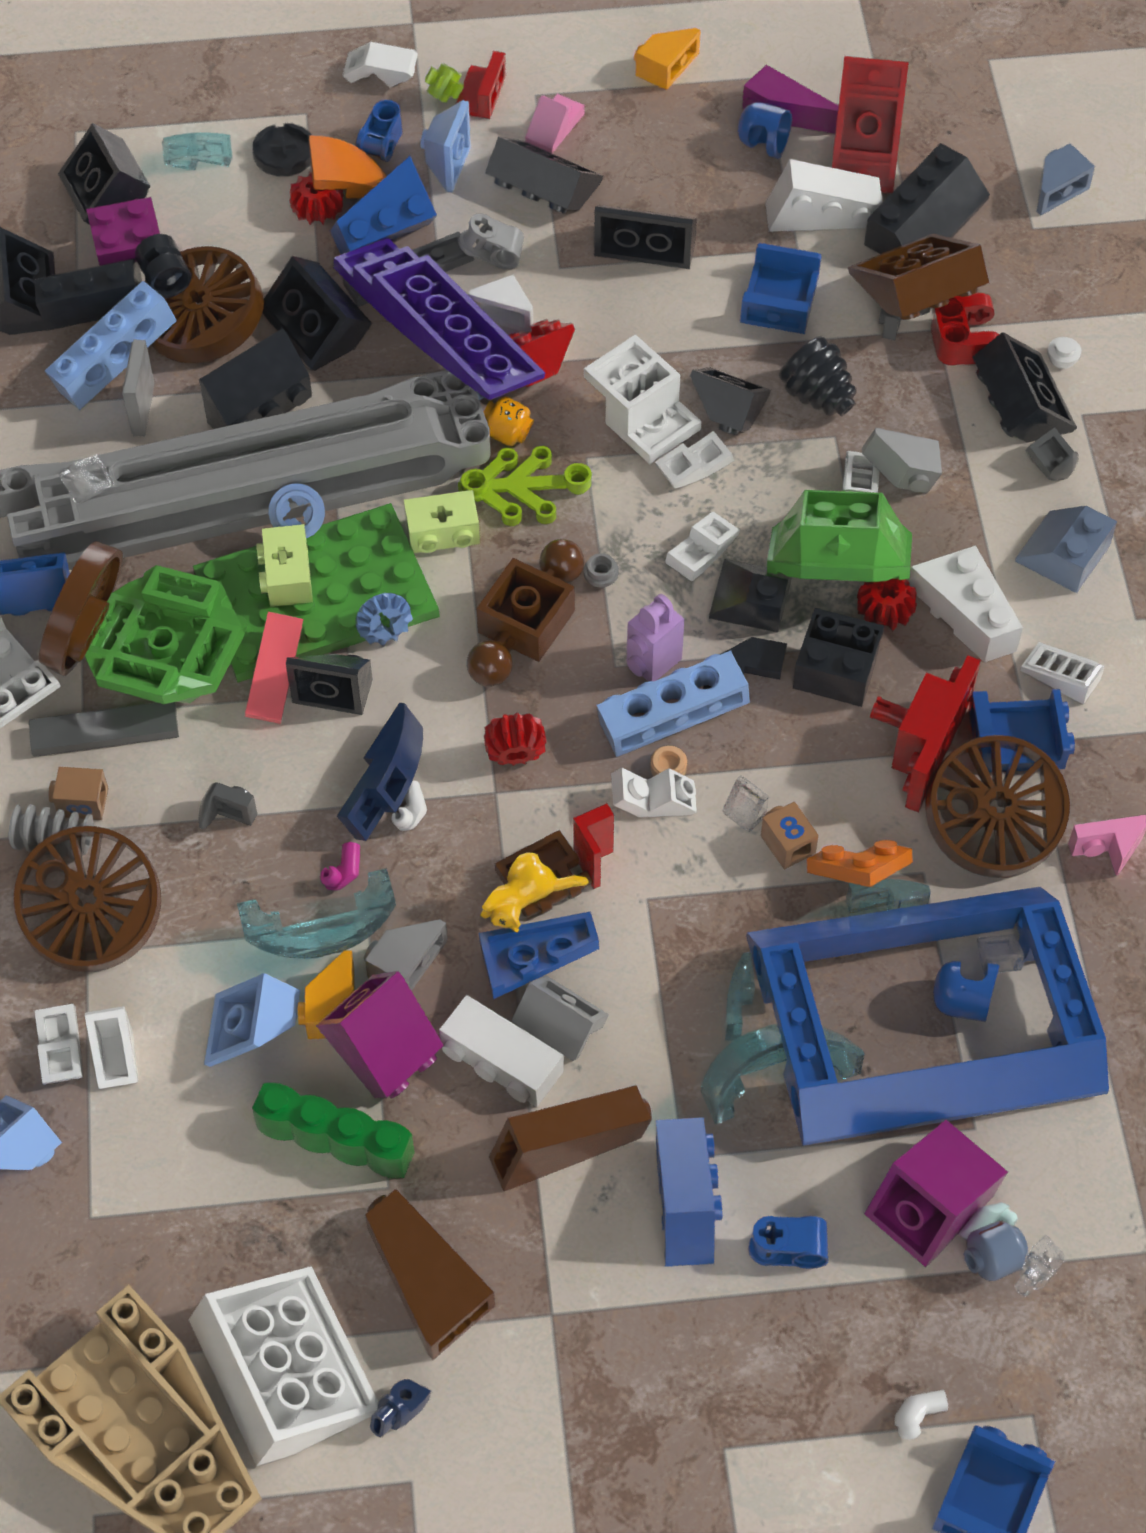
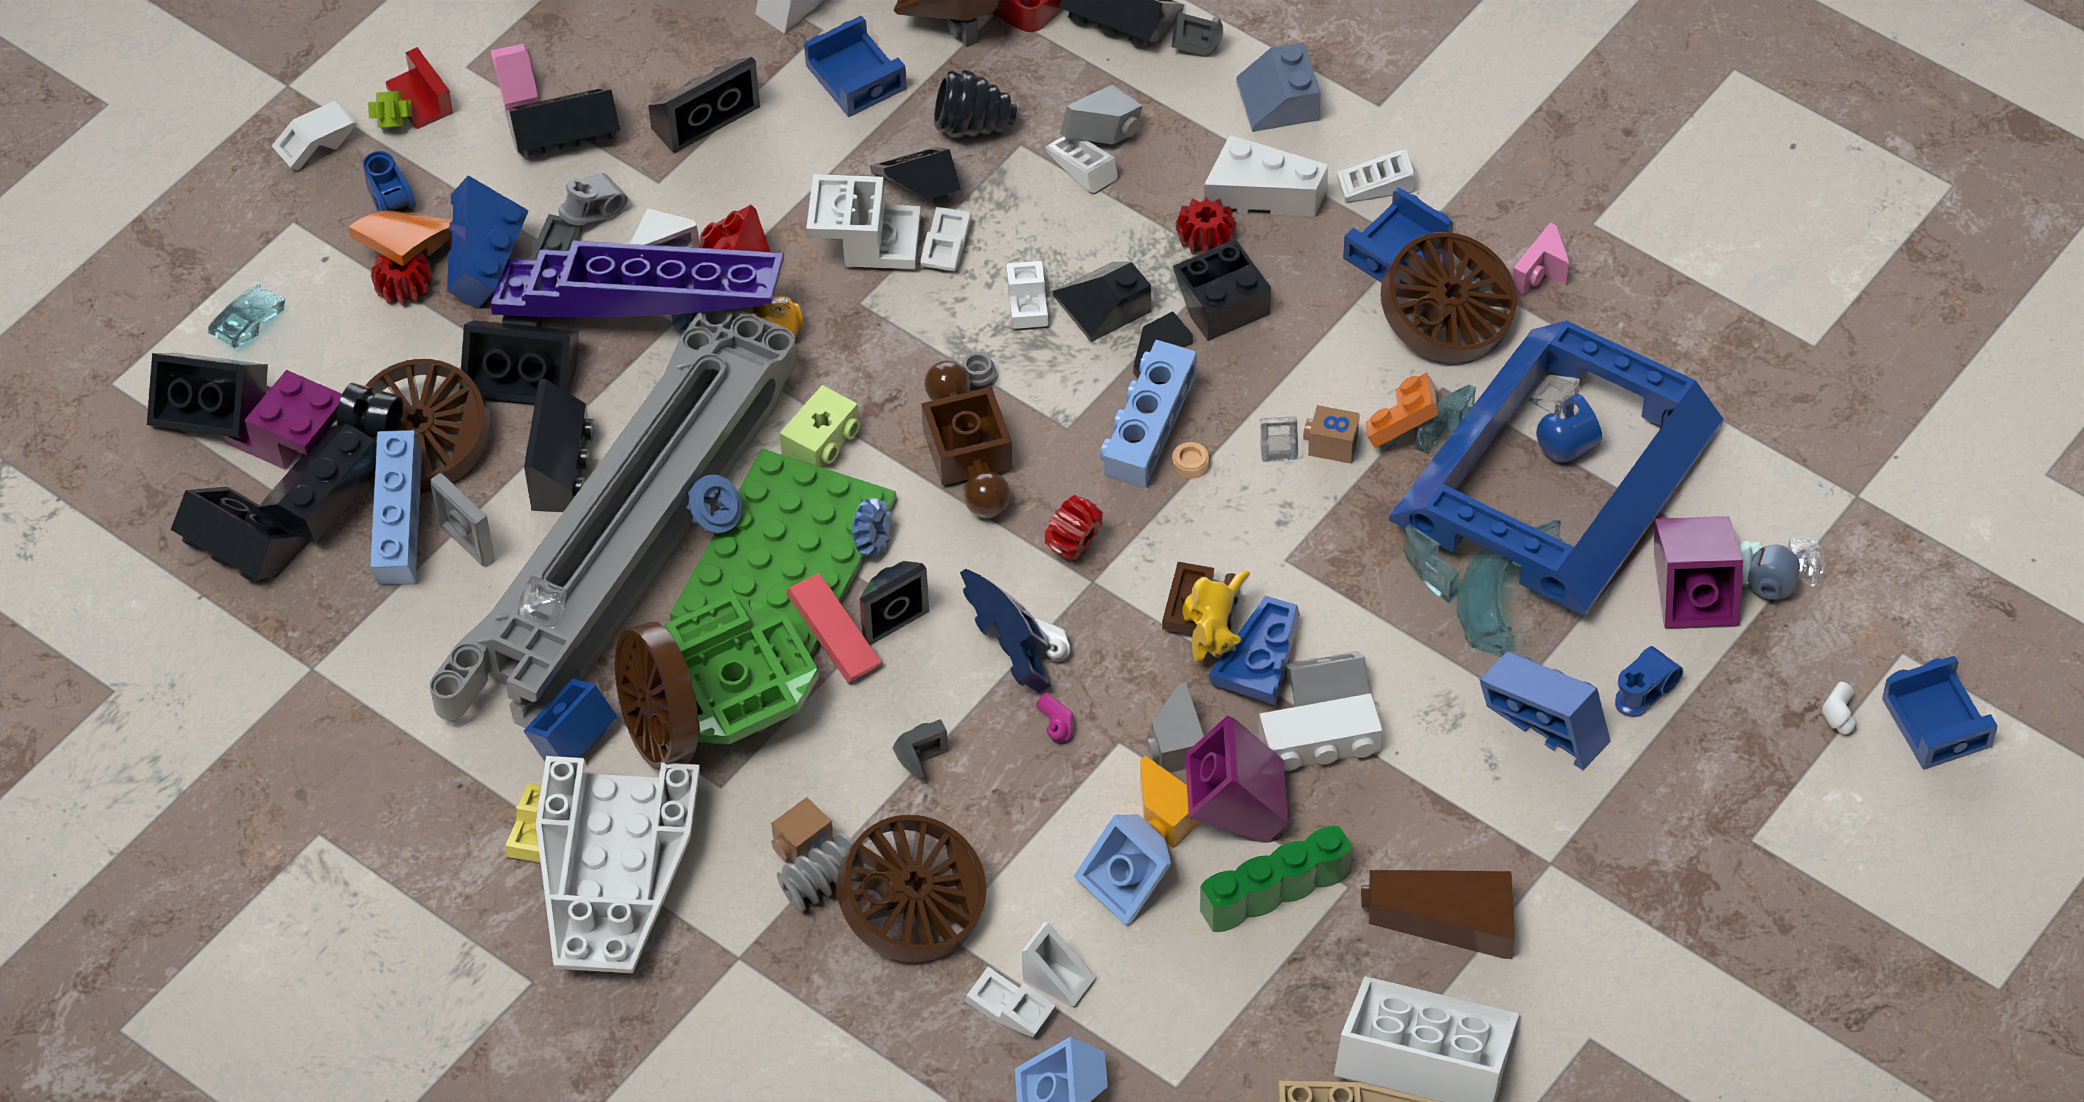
camera: 45 degrees left, 5 degrees down
(103, 728) = (753, 780): dark grey tile -> none
(282, 149) = (316, 262): black tile -> none
(286, 565) = (755, 547): yellowish green brick -> none
(322, 935) = (1111, 767): clear light blue windscreen -> none
(396, 1412) = (1530, 999): dark blue piece -> none
(448, 144) = (459, 150): light blue slope -> none
(520, 484) = (877, 322): lime plant -> none
(567, 1134) = (1431, 744): reddish brown slope -> none
(593, 840) = (1220, 548): red panel -> none
(655, 639) = (1089, 376): lavender brick -> none
(661, 795) = (1211, 484): white slope -> none
(841, 539) = (1129, 208): bright green piece -> none
(927, 726) = (1347, 285): red brick -> none

